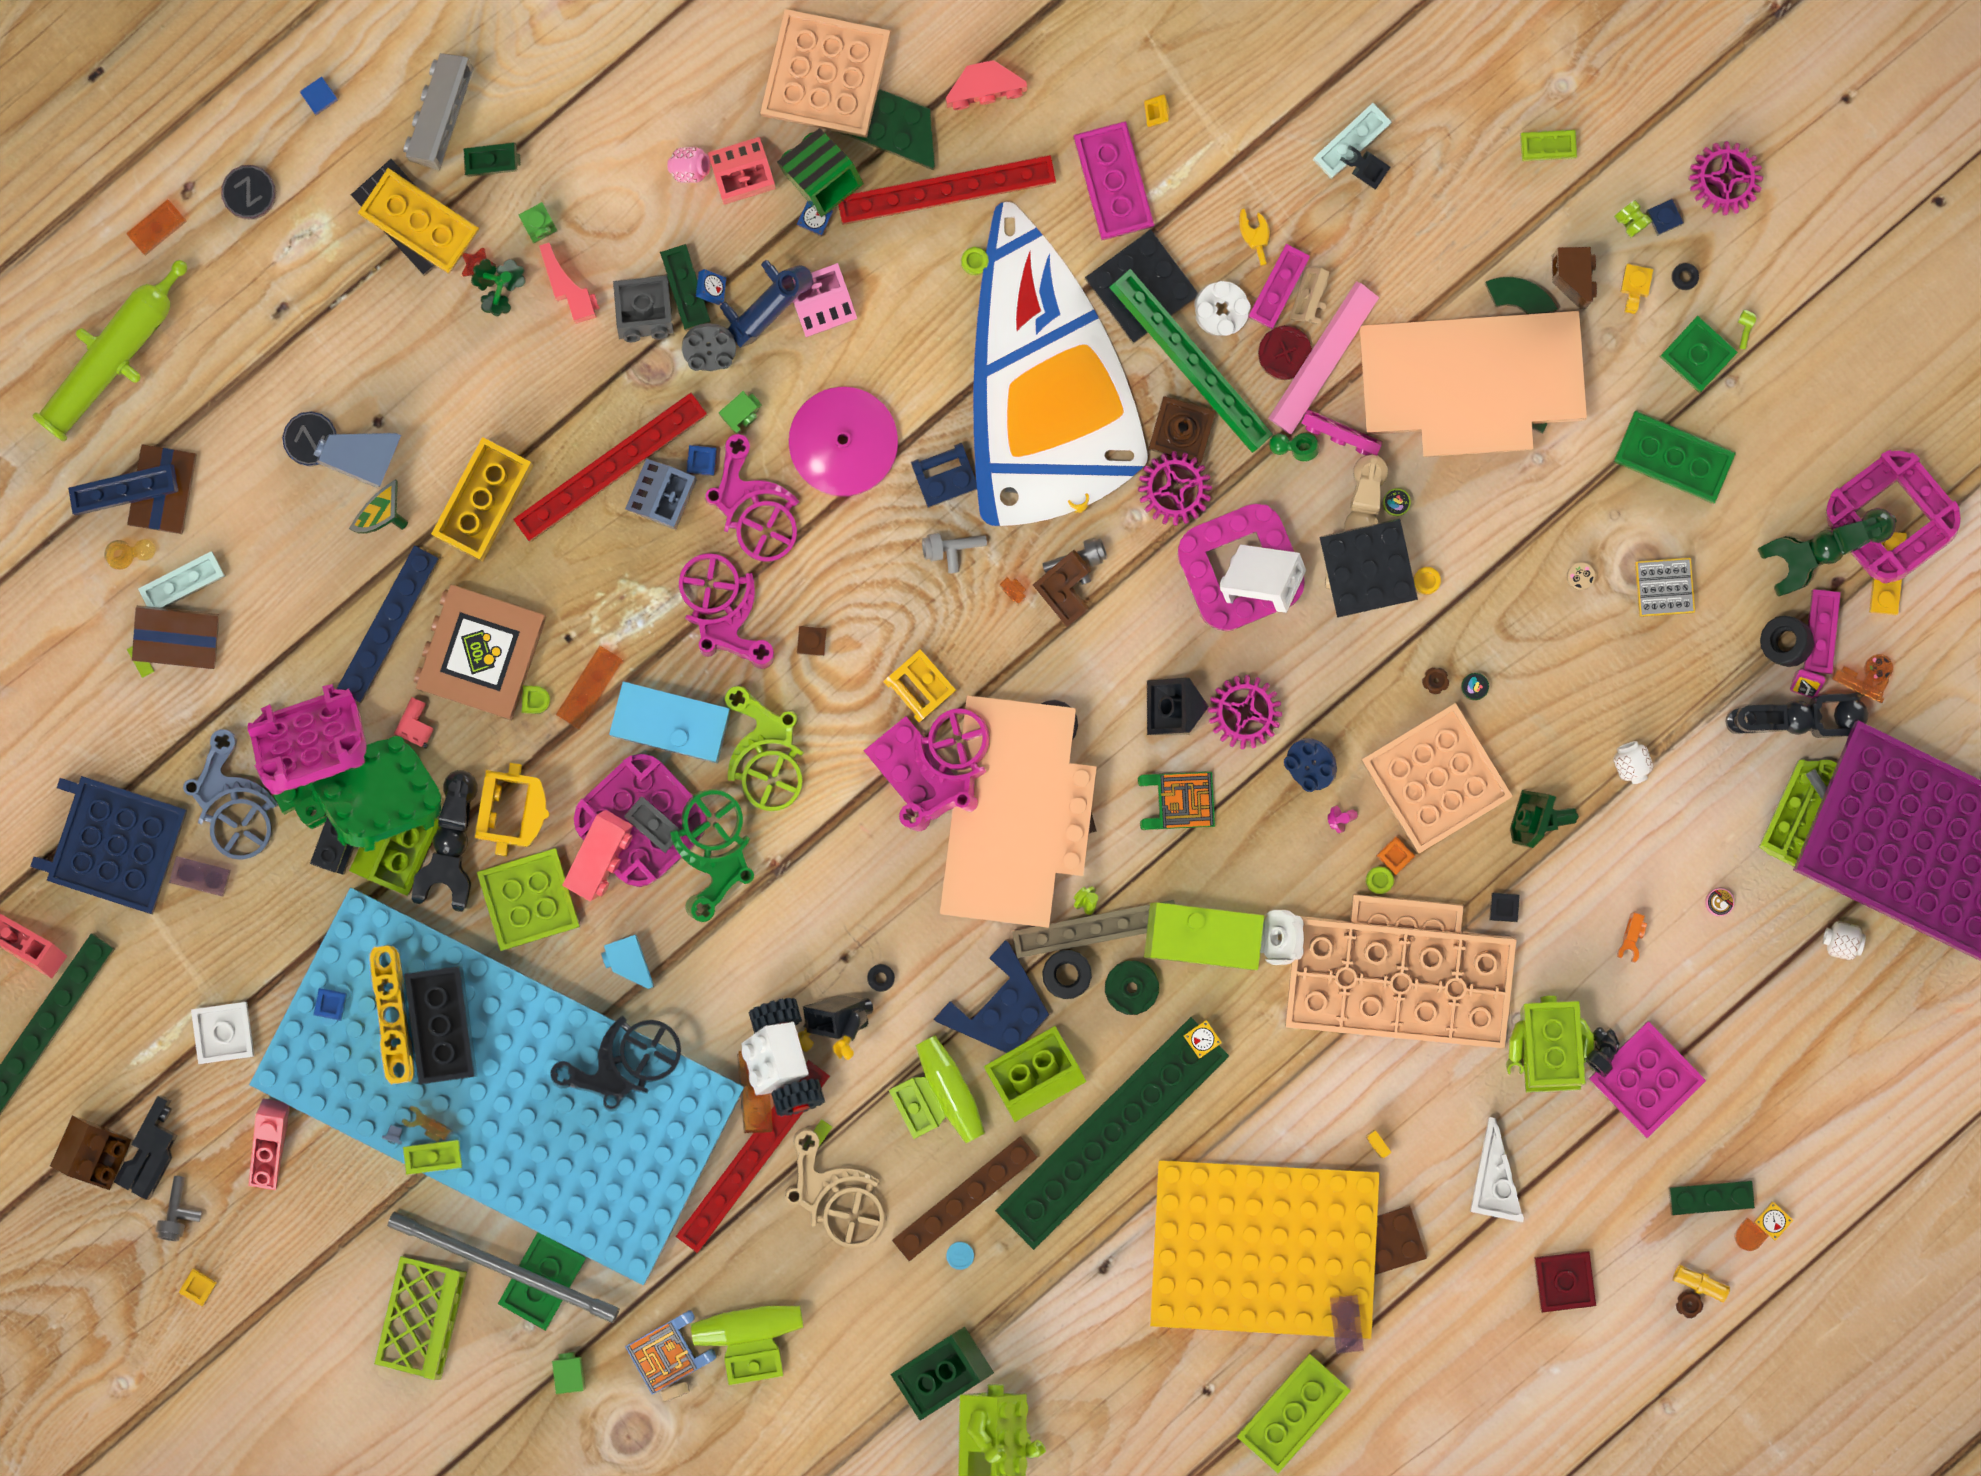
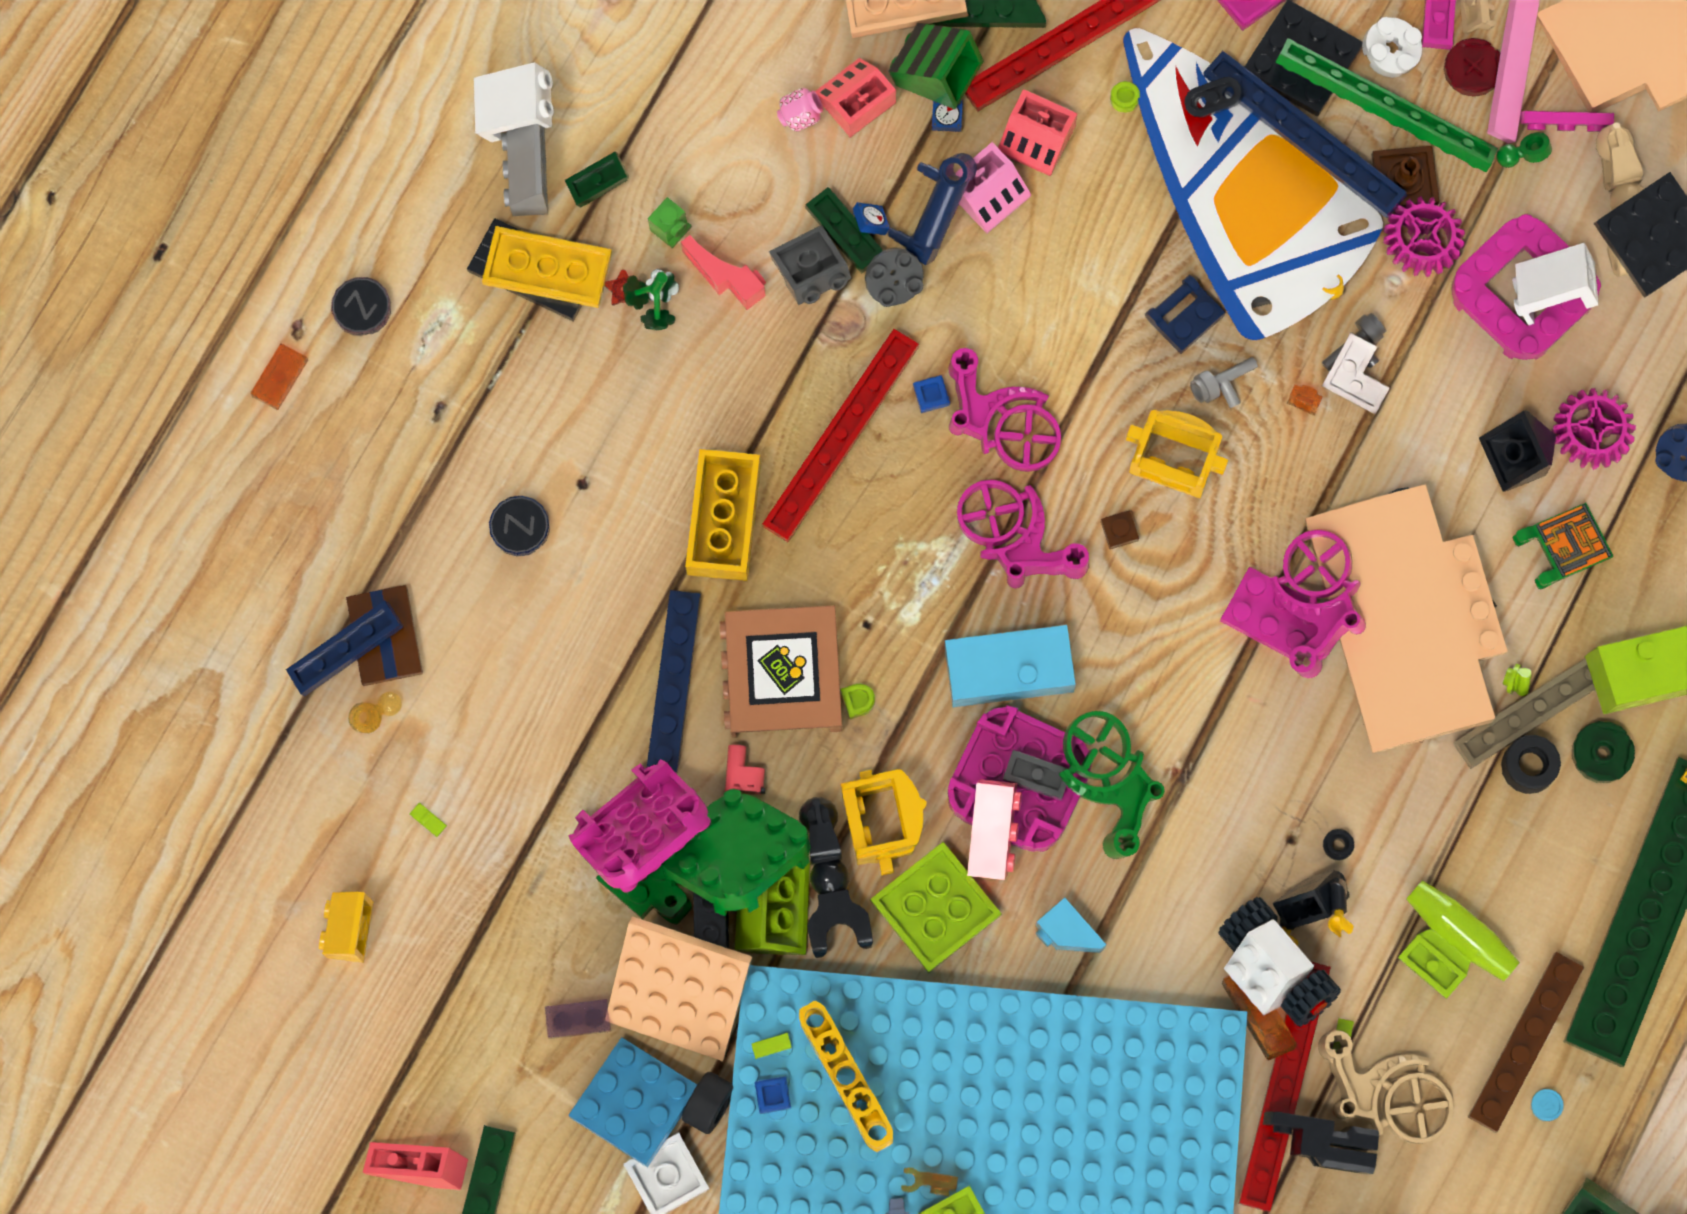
camera: 15 degrees left, 10 degrees down
(38, 726) = (347, 926): none -> yellow slope
(109, 354) = (277, 518): lime piece -> none
(114, 844) = (473, 1021): dark blue plate -> none
(175, 637) = (456, 779): reddish brown tile -> none
(182, 581) = (441, 721): light aqua plate -> none
(214, 785) = (556, 917): sand blue piece -> none
(219, 962) = (633, 1102): none -> dark azure plate
(277, 988) = (708, 1103): none -> black tyre
(287, 887) = (678, 988): none -> light nougat plate
(318, 95) = (396, 186): blue tile -> none
(345, 963) = (771, 1045): none -> lime piece
(358, 455) = (577, 517): sand blue slope -> none
(379, 511) = (621, 568): shield -> none
(440, 1025) = (902, 1068): black brick -> none
(441, 65) = (512, 100): none -> white panel
(589, 687) = (910, 665): clear orange plate -> none
(608, 1080) = (1103, 1057): black piece -> none
(661, 493) = (904, 439): sand blue slope -> none
(740, 411) = (951, 329): bright green brick -> none
(757, 1207) = (1314, 1136): none -> black plate
(769, 729) = (1116, 633): lime piece -> none
(846, 467) = (1062, 345): dark pink dish -> none
(882, 267) = (1037, 132): none -> coral slope
(899, 577) = (1182, 429): none -> yellow animal
(926, 679) = (1254, 521): yellow plate -> none
(1008, 1015) = (1487, 832): dark blue wing -> none
(1035, 1074) = (1544, 879): lime slope -> none
(1047, 297) = (1215, 97): none -> black plate
(1110, 358) = (1309, 137): none -> dark blue plate
(1396, 502) = (1653, 166): tile -> none

